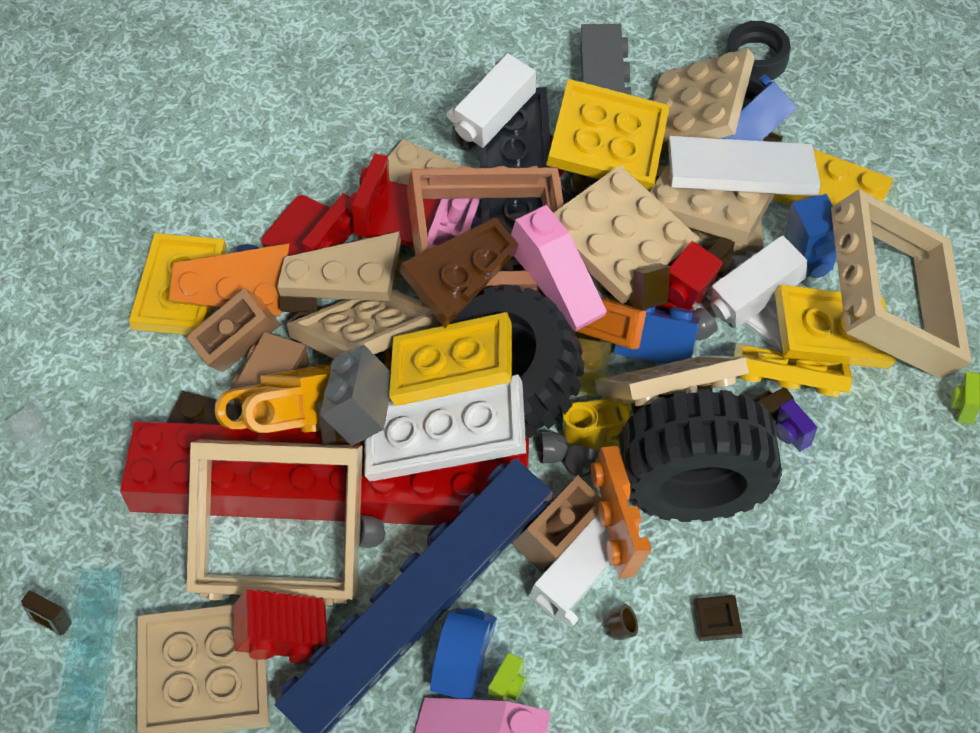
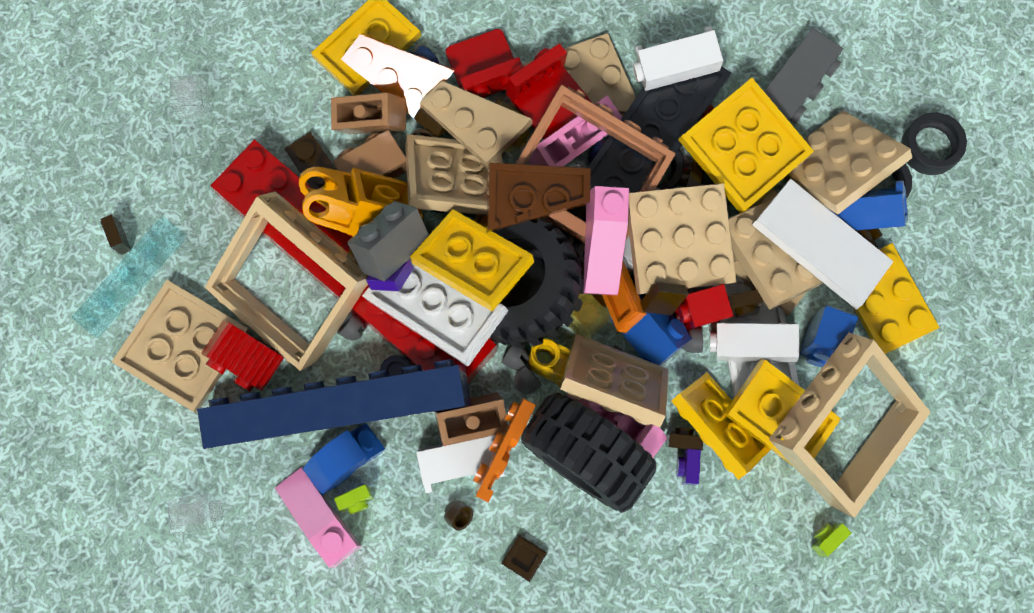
camera: 35 degrees right, 20 degrees up
(389, 435) = (394, 282): none -> dark purple plate

